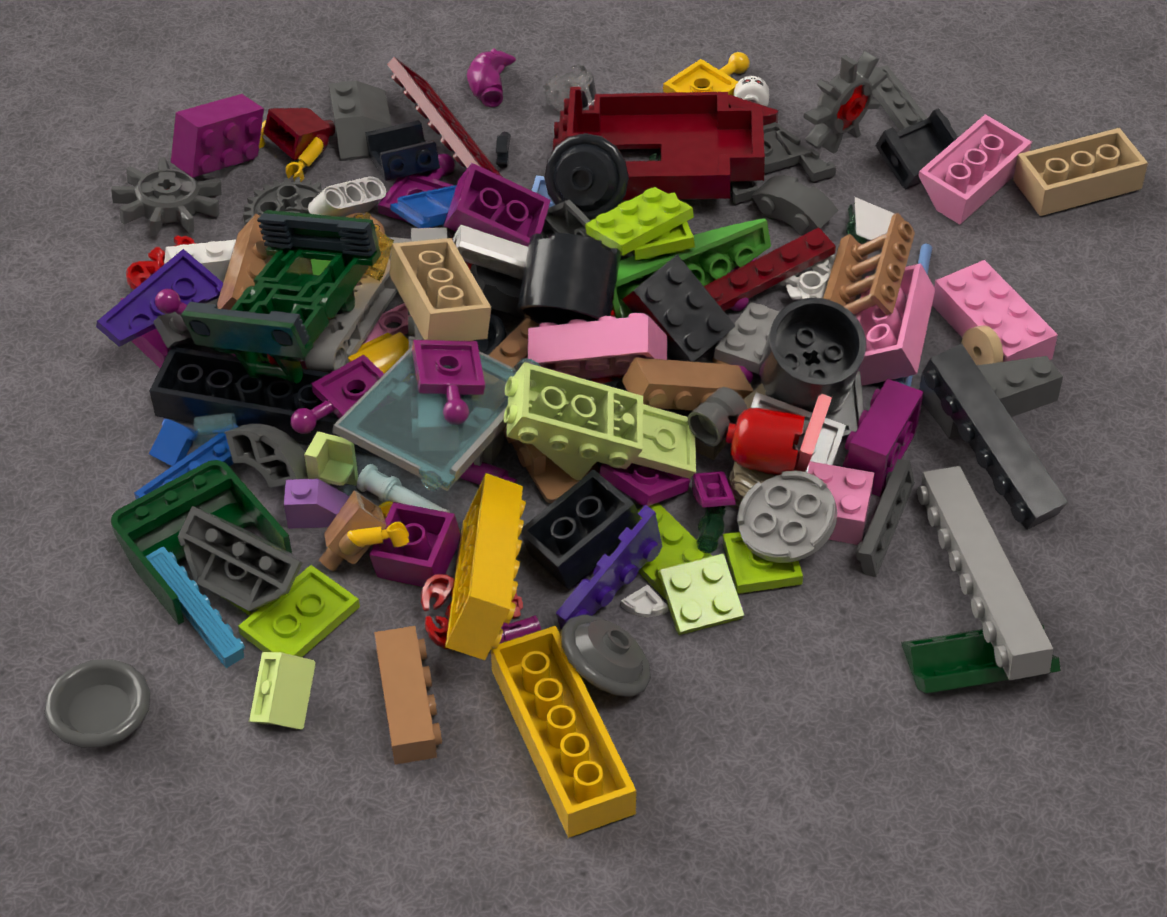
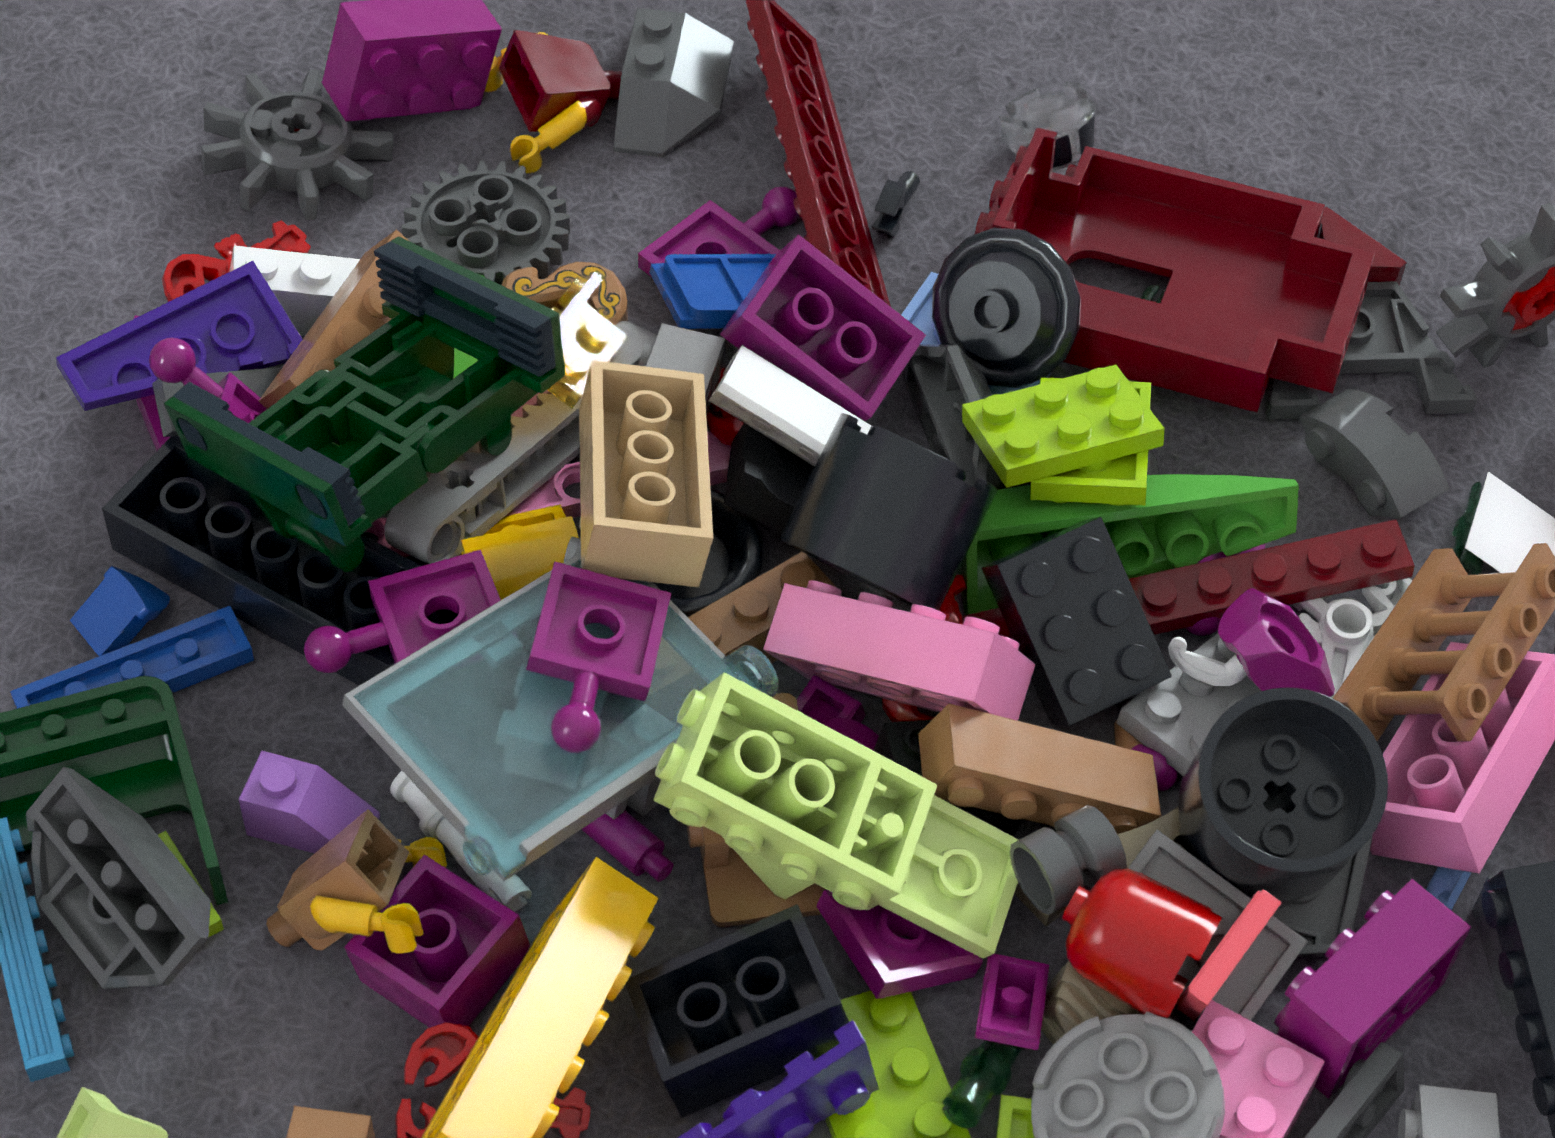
camera: 15 degrees right, 5 degrees up
(214, 424) = (193, 601): clear light blue piece -> none
(269, 451) = (258, 687): dark grey brick -> none
(300, 617) = (199, 1027): lime plate -> none
(331, 460) = (341, 744): yellowish green panel -> none
(348, 197) = (583, 233): white beam -> none
(401, 150) = (716, 164): black panel -> none
(485, 76) = (912, 57): magenta animal -> none
(705, 75) = (1302, 154): yellow plate -> none
(753, 90) = (1375, 210): white head -> none
(769, 291) = (1268, 645): none -> magenta hat

